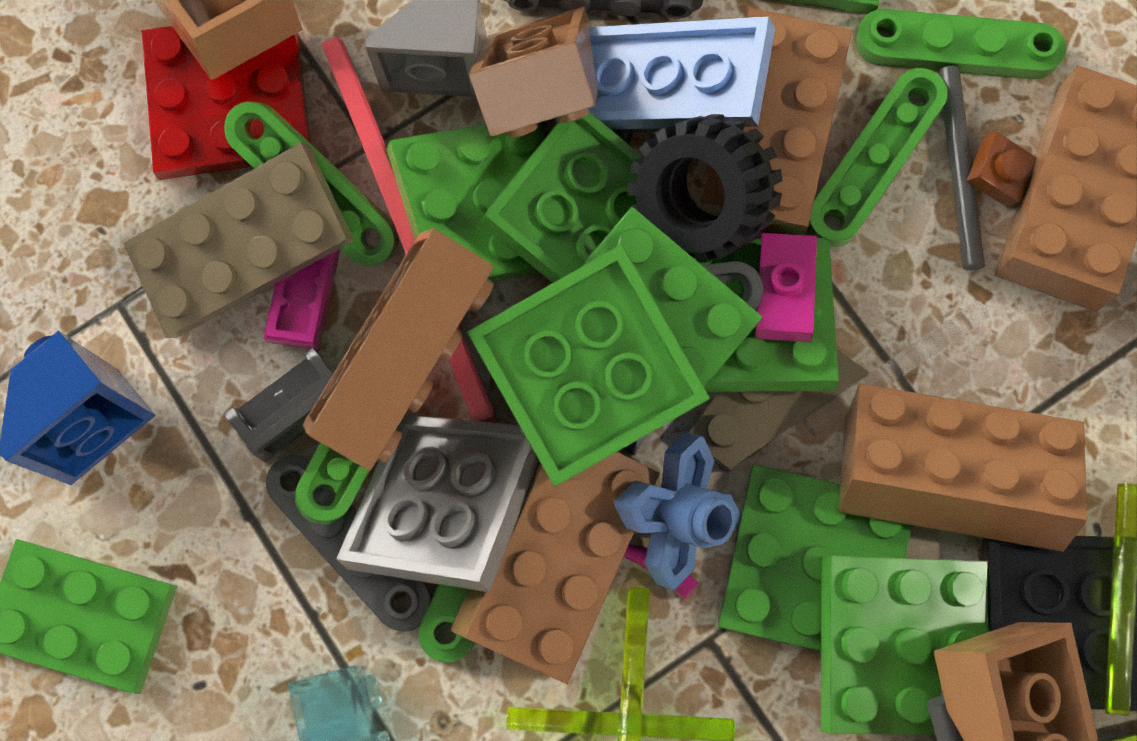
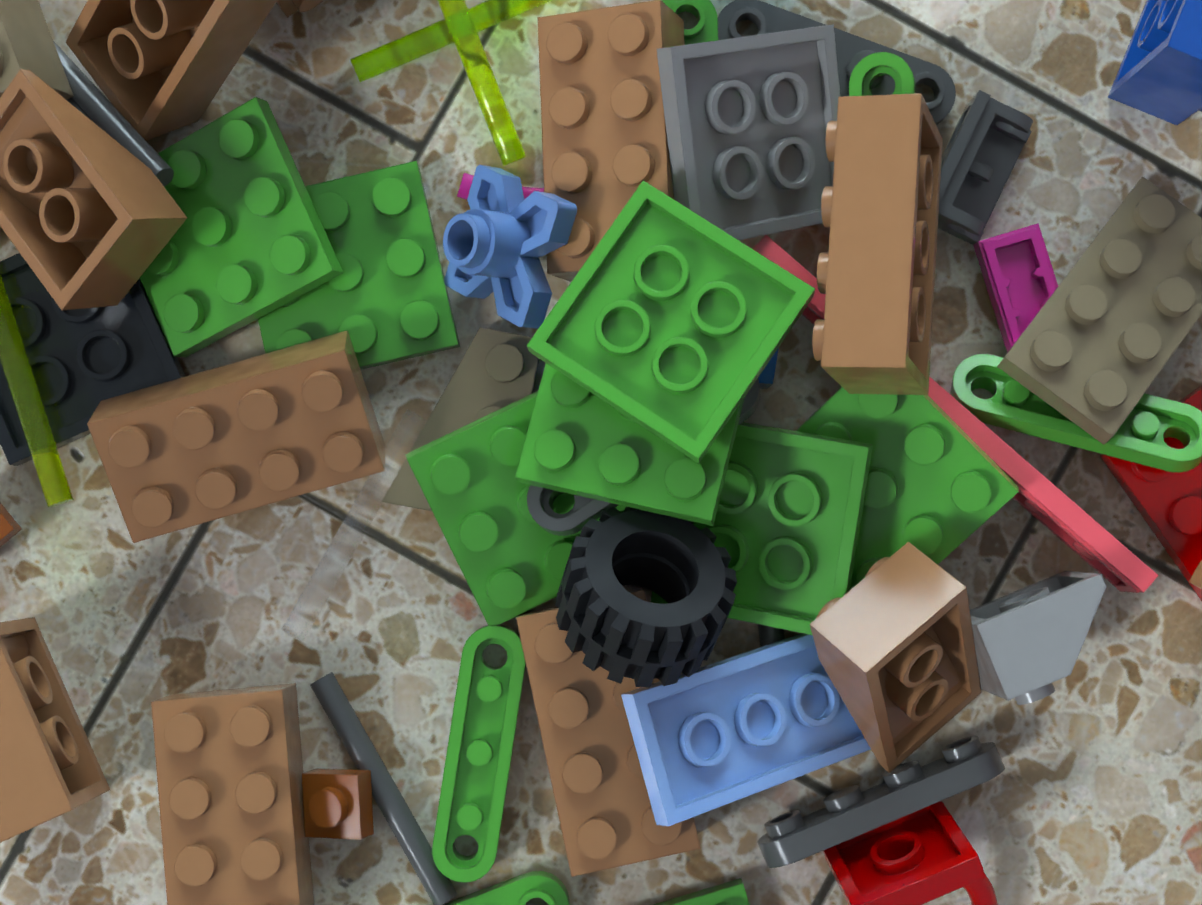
camera: 150 degrees right, 10 degrees up
(788, 287) = (508, 537): dark pink plate -> none

